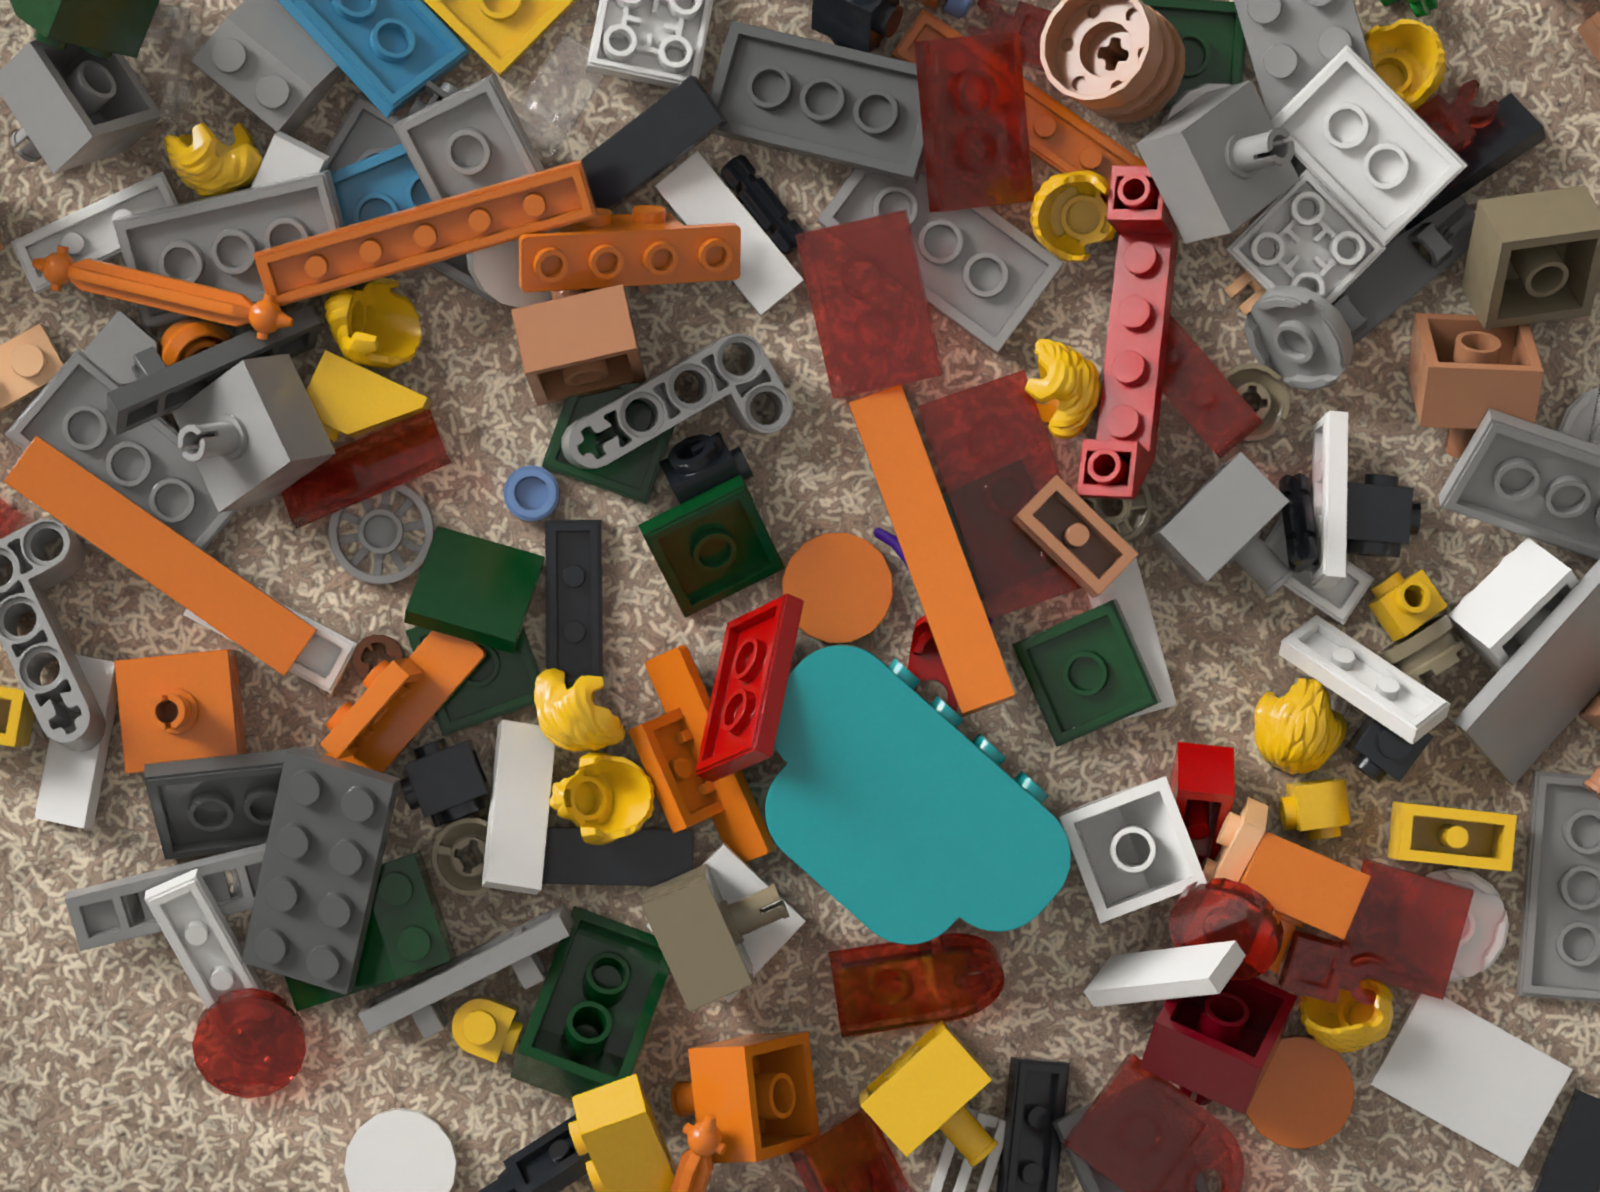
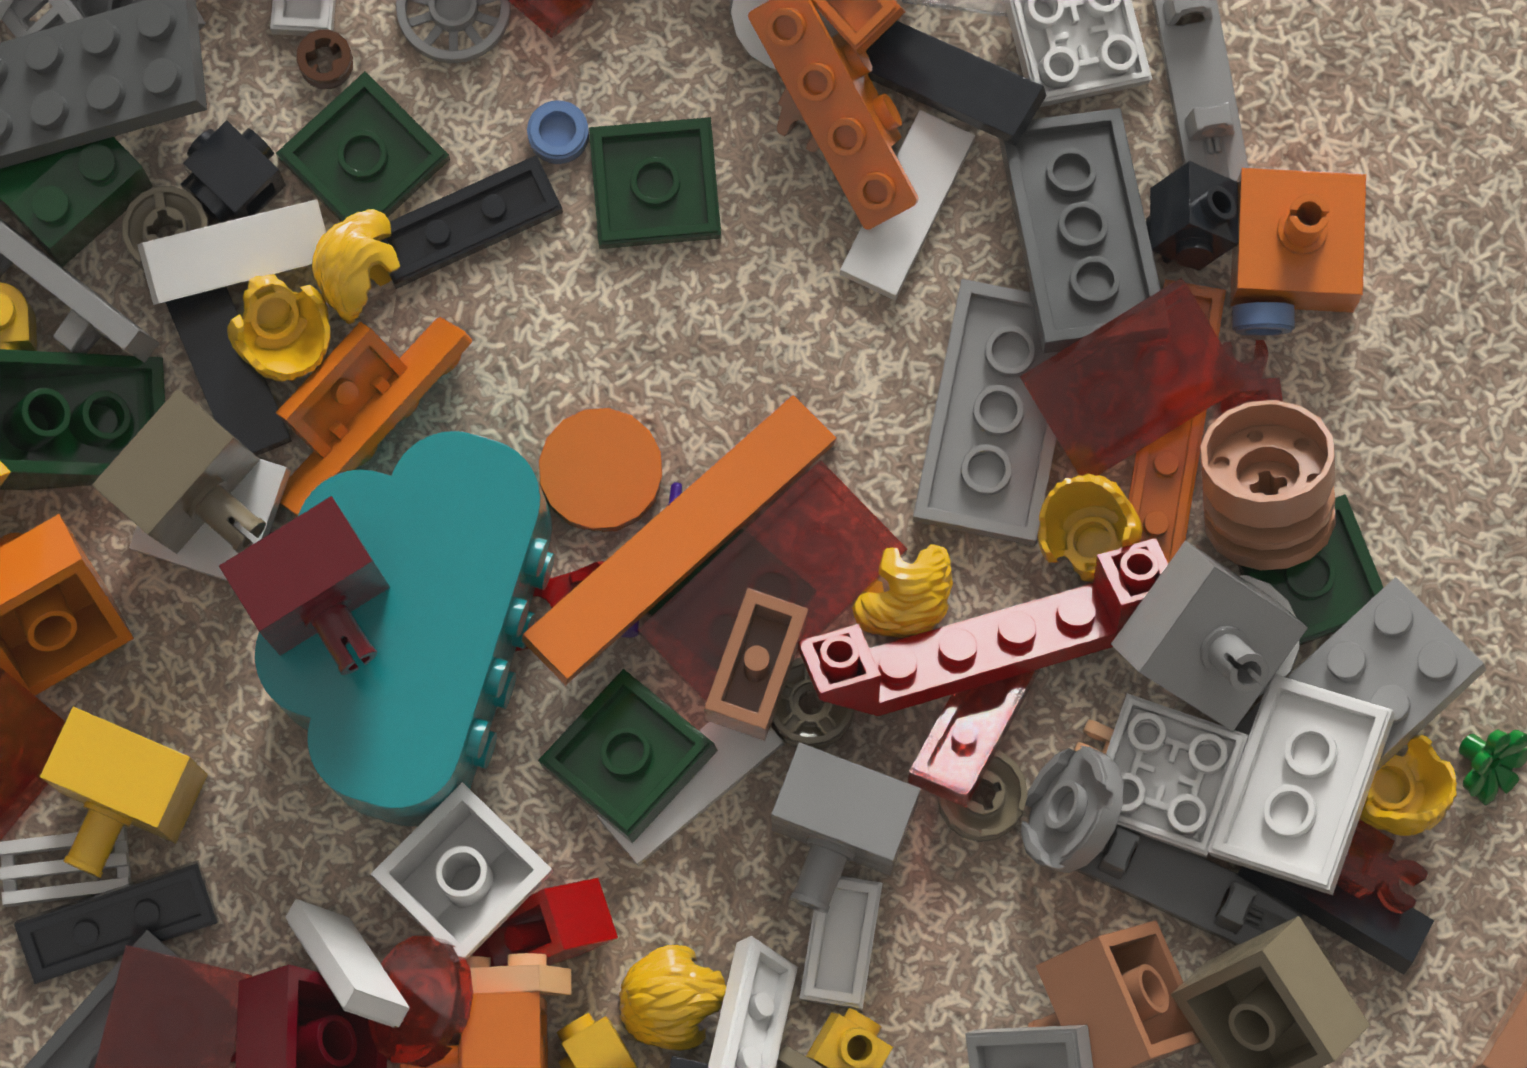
camera: 70 degrees right, 10 degrees down
(400, 701) = (289, 89): orange bracket -> none
(474, 589) = (434, 113): dark green tile -> none
(578, 344) = (723, 98): nougat brick -> none
(669, 410) = (698, 219): light grey beam -> none
(702, 464) = (649, 287): black brick -> none
(711, 546) = (583, 321): dark green tile -> none
(749, 688) = (453, 412): red tile -> none
(762, 203) = (953, 224): black axle -> none
(861, 870) = (309, 583): none -> dark red brick
(869, 303) = (901, 367): clear red tile -> none
(915, 983) = (228, 718): clear red tile -> none
(1299, 523) = (881, 898): black axle -> none
(1330, 497) = (920, 918): white tile -> none
(1380, 516) = (927, 978): black brick -> none

